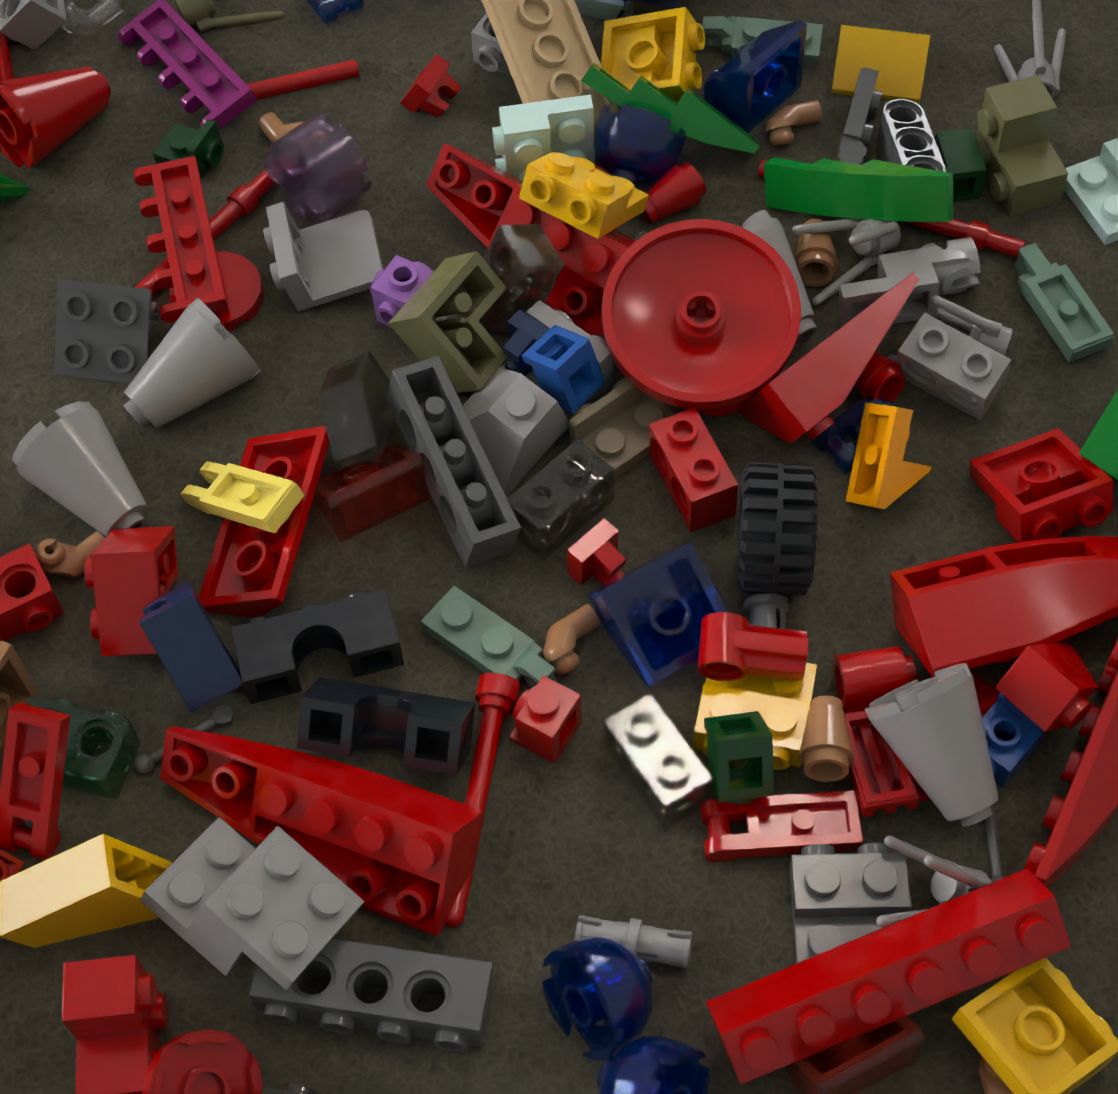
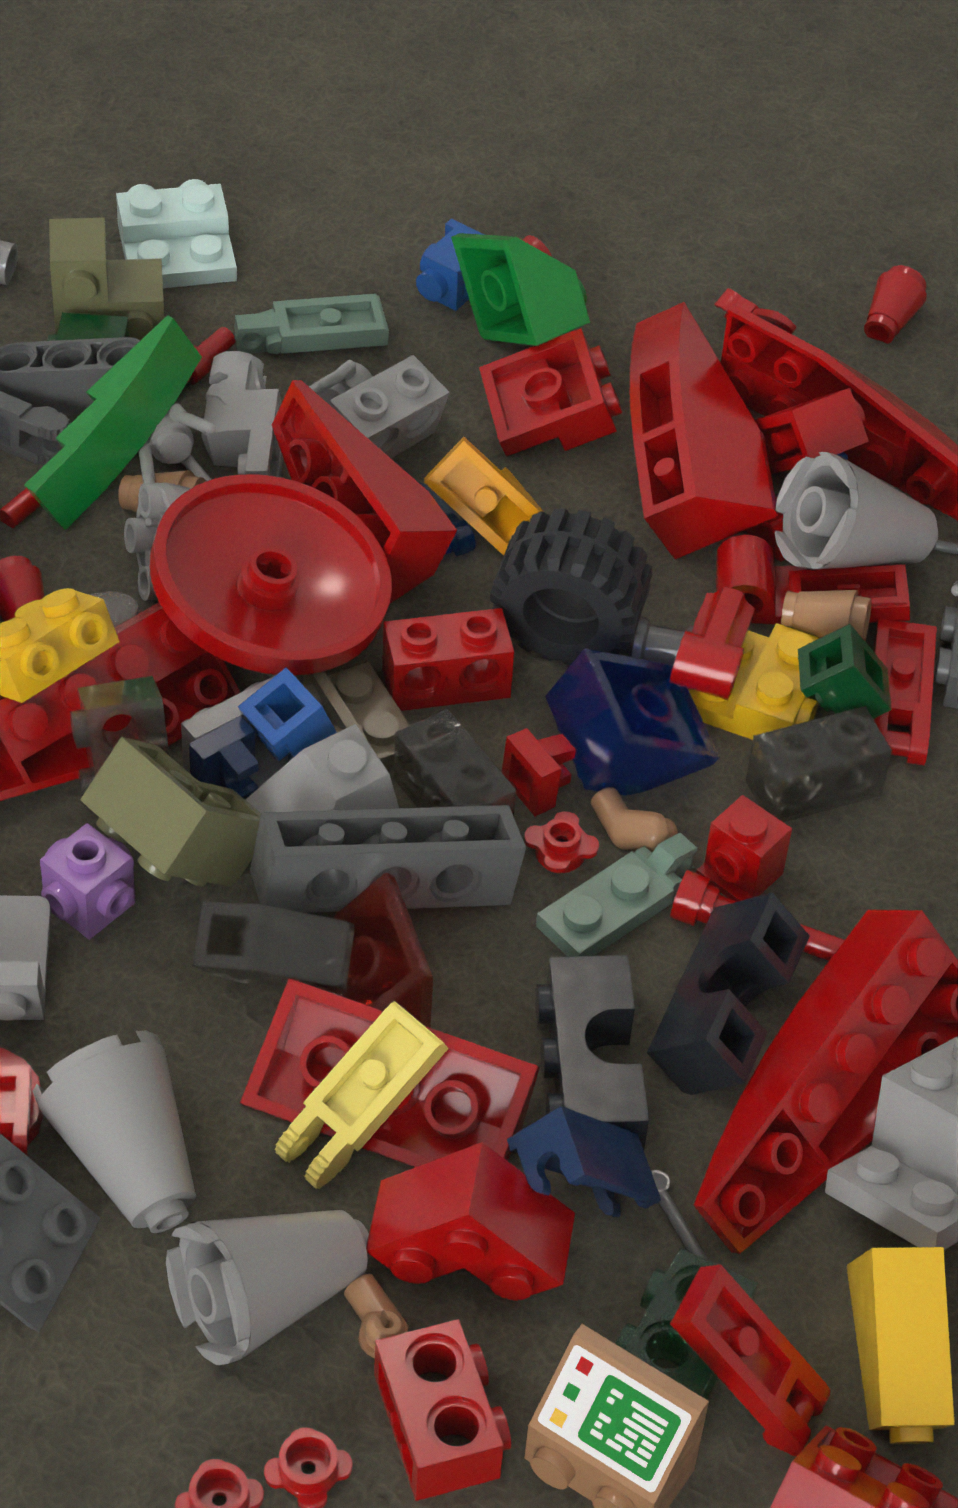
camera: 85 degrees left, 10 degrees down
(537, 603) = (557, 855): none -> red plate

